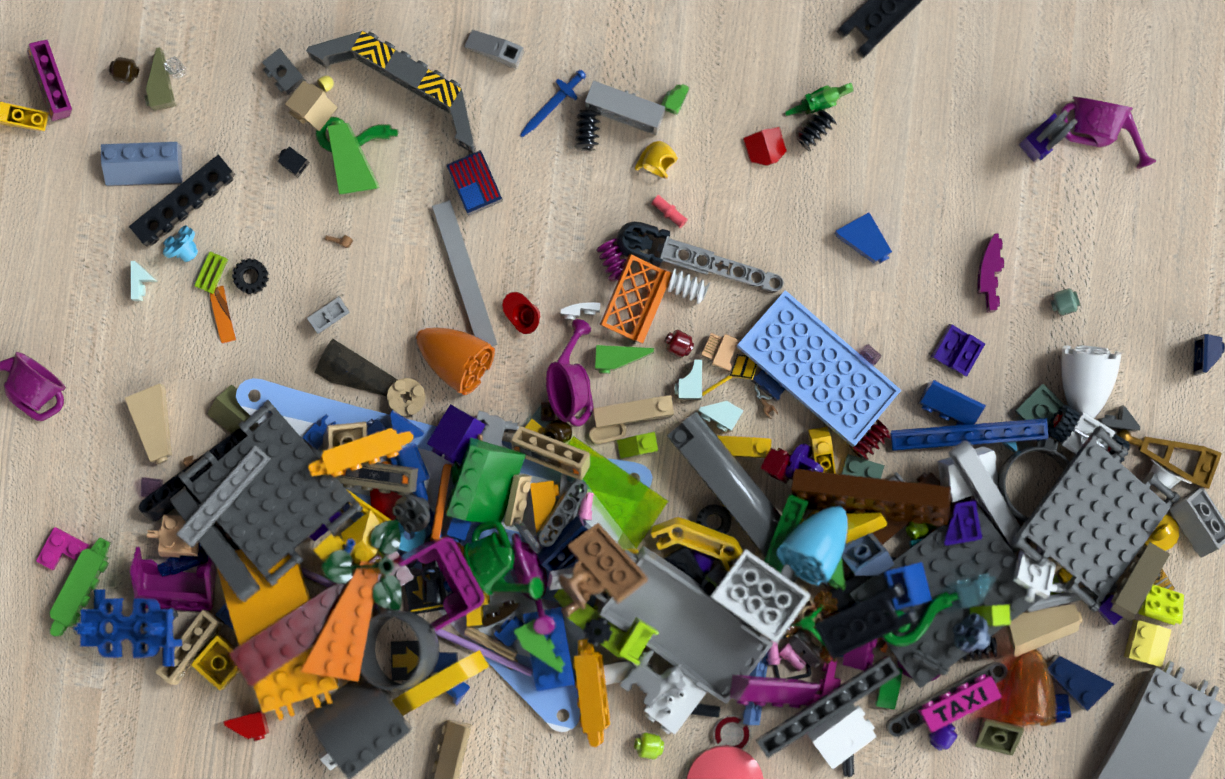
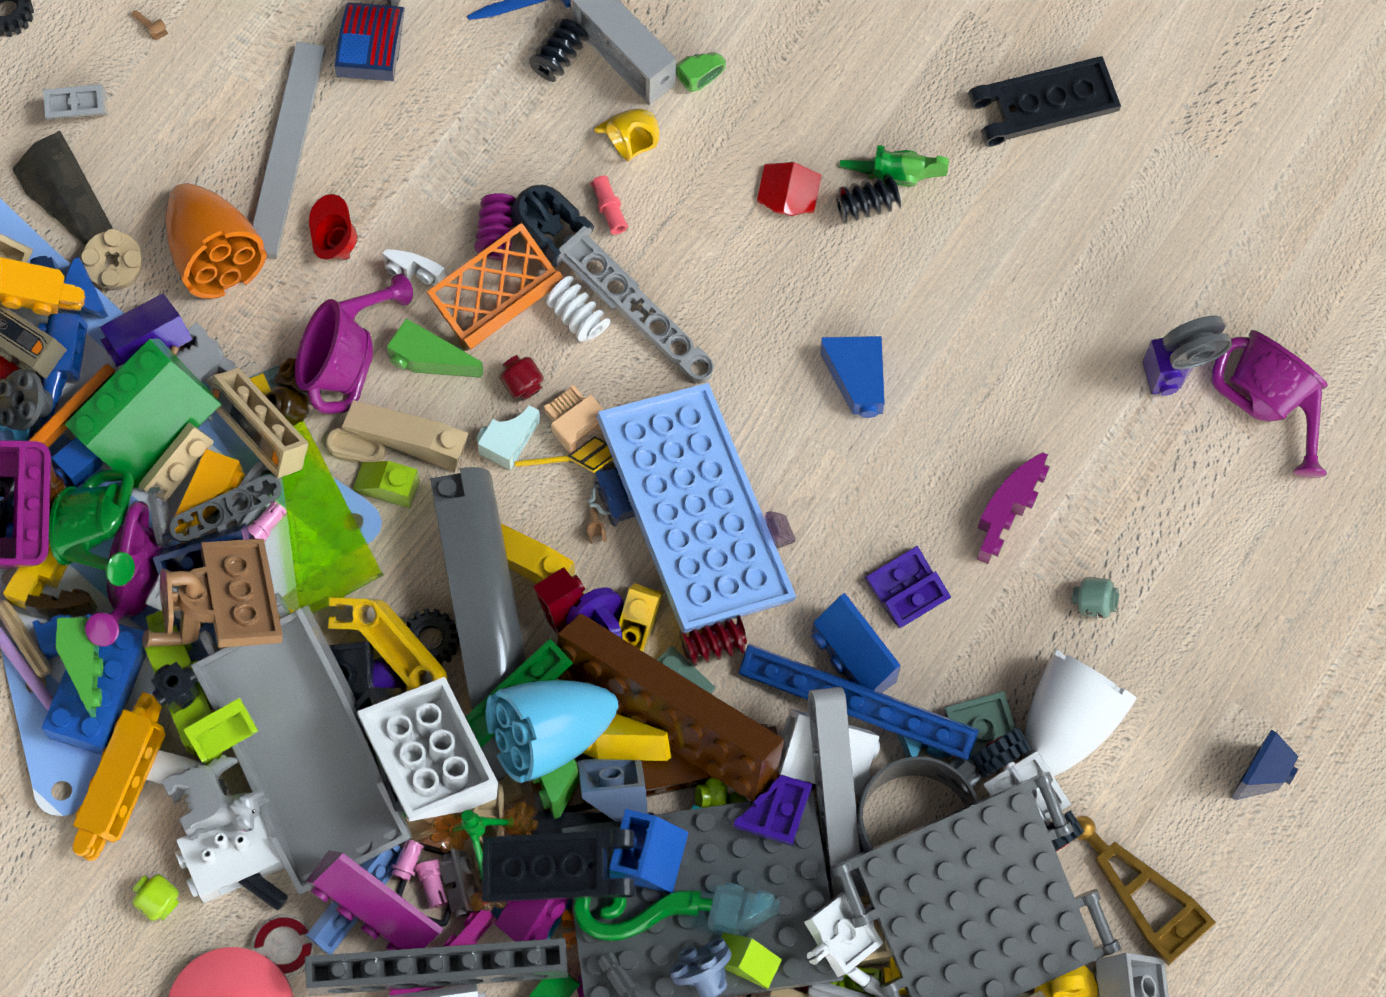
camera: 25 degrees right, 15 degrees down
(722, 413) = (528, 500): light aqua slope -> none
(1125, 420) = (1094, 806): dark grey slope -> none
(1165, 476) = (1114, 911): white piece -> none

